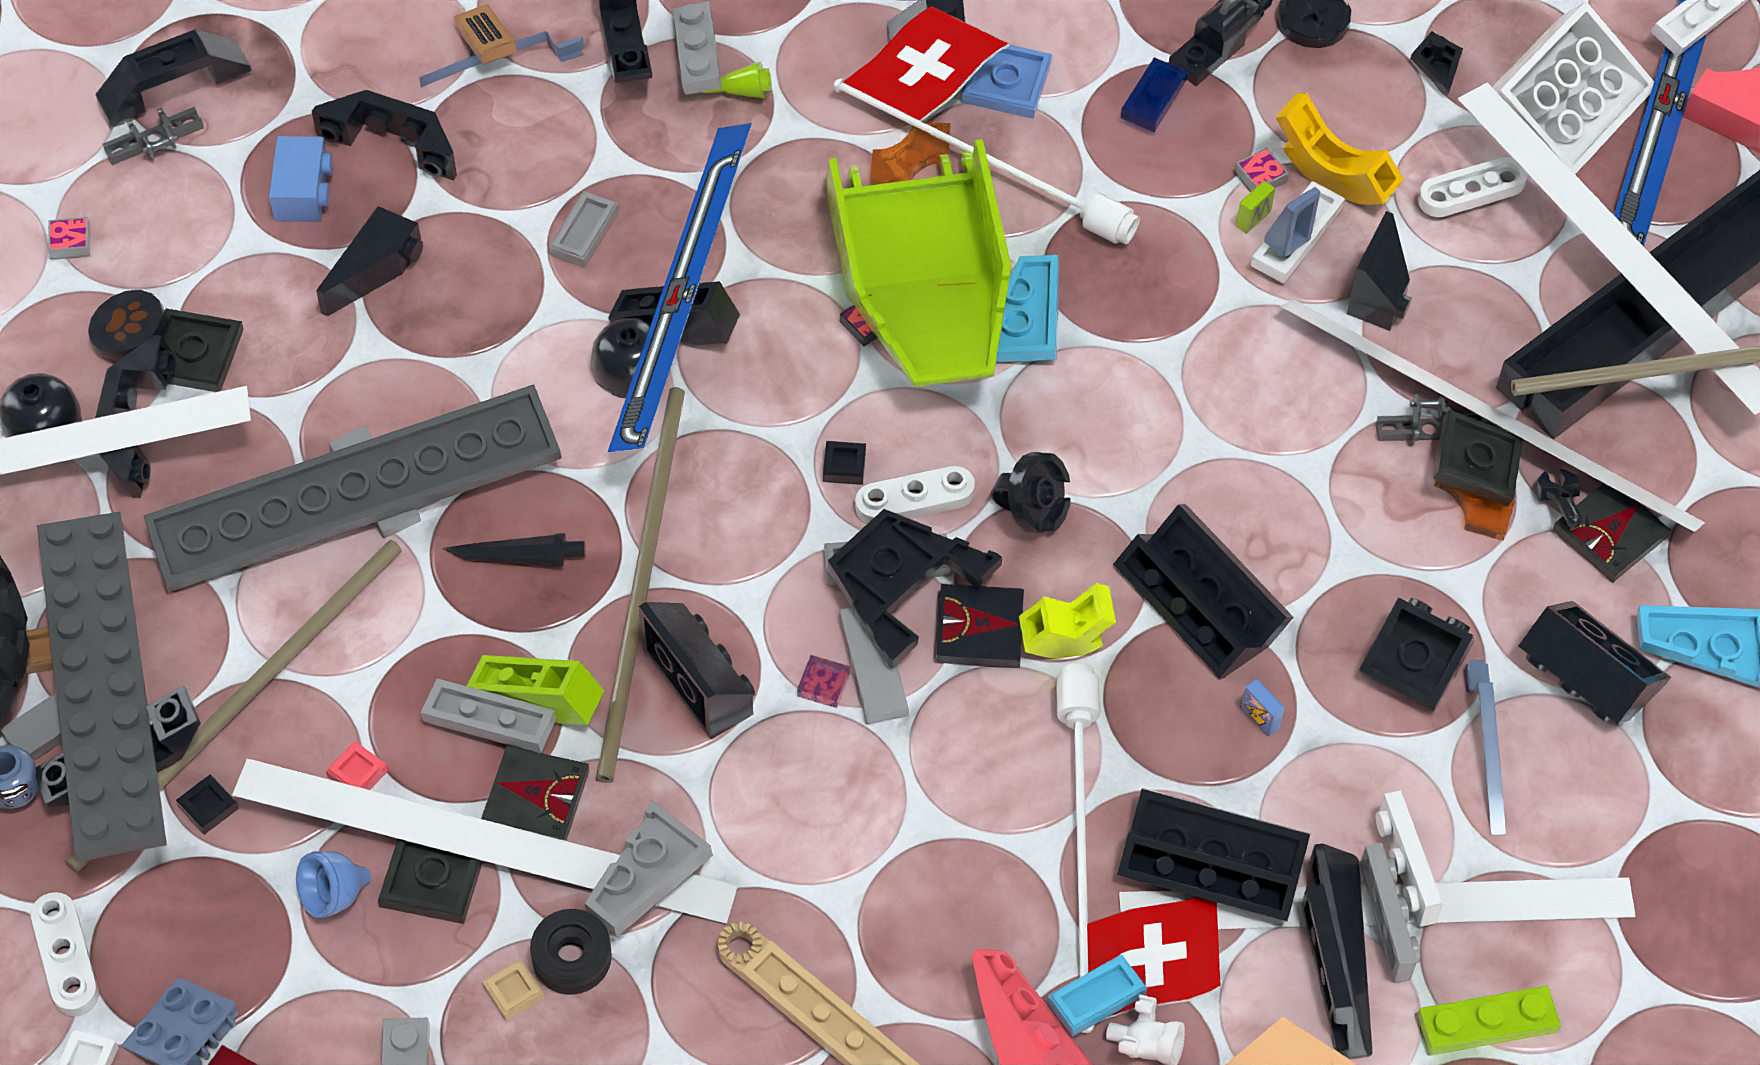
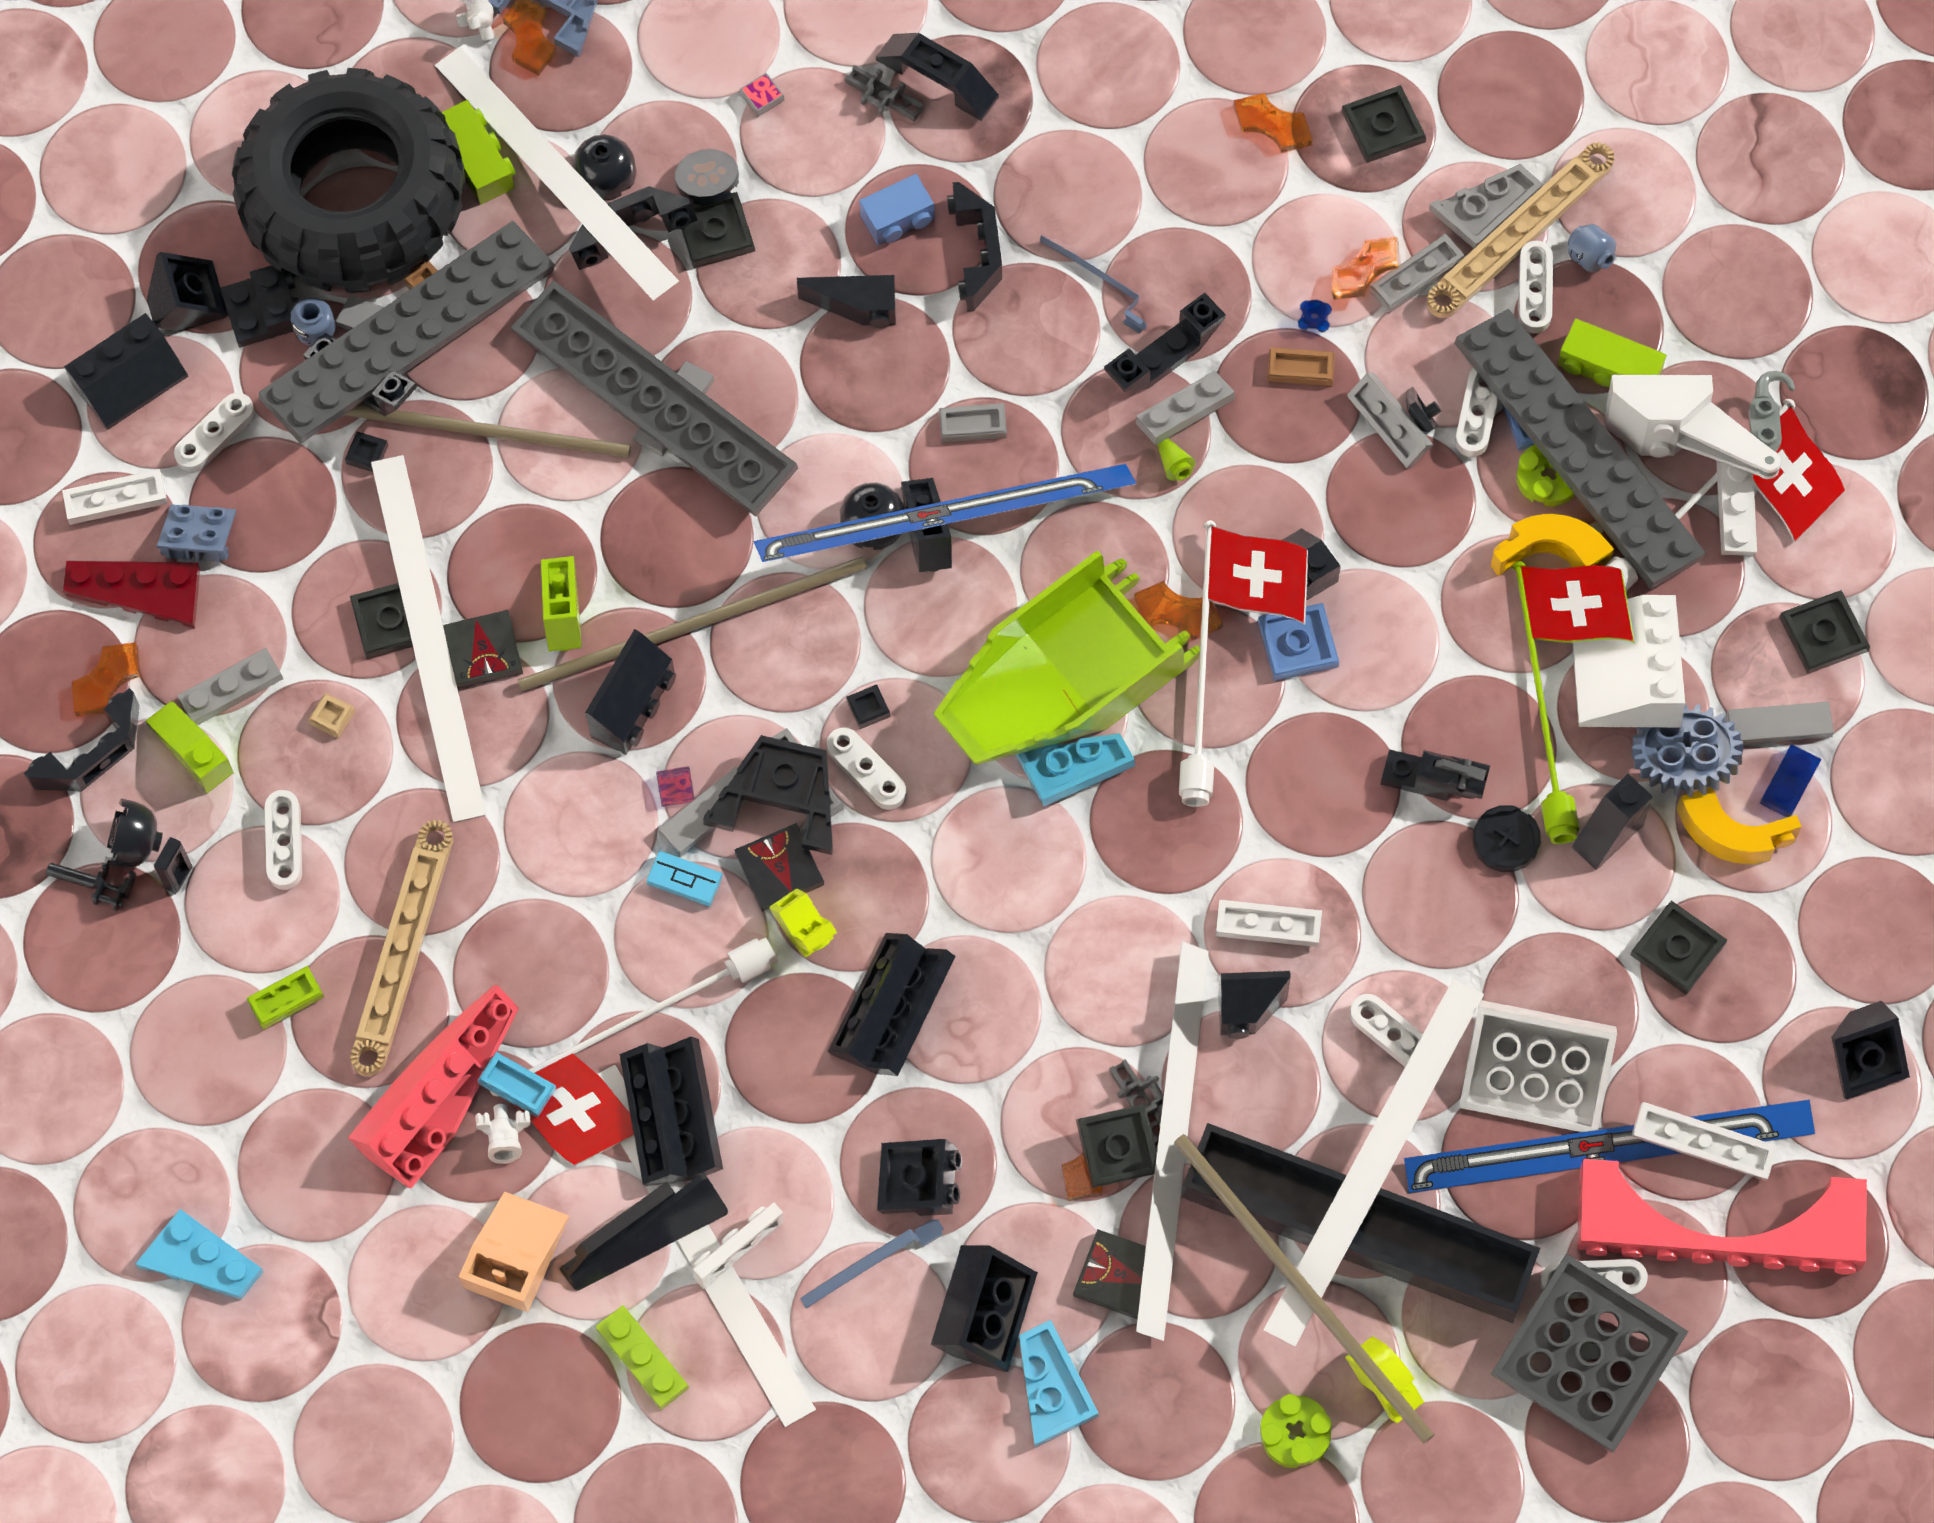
camera: 65 degrees right, 10 degrees up
(329, 882) = (344, 560): medium blue helmet -> none
(357, 768) = (441, 528): coral tile -> none
(485, 34) = (1107, 256): medium nougat tile -> none
(488, 715) = (522, 585): light grey plate -> none
(531, 550) = (675, 541): black bar -> none
(567, 927) = (374, 753): black tyre -> none
(649, 868) = (465, 751): light grey wing -> none
(939, 721) = (684, 878): none -> medium azure tile
(1034, 492) = (902, 848): black tile -> none
(1154, 94) = (1343, 755): clear blue plate -> none
(1255, 206) = (1272, 880): lime tile -> none
(1260, 168) = (1316, 870): tile -> none
(1262, 707) = (811, 1090): medium blue tile -> none
(1294, 224) = (1250, 913): sand blue slope -> none
(1328, 161) = (1352, 913): yellow arch -> none
(1389, 912) = (685, 1250): light grey plate -> none
(1438, 60) = (1515, 953): black piece -> none
(1562, 495) = (1123, 1224): black bar -> none

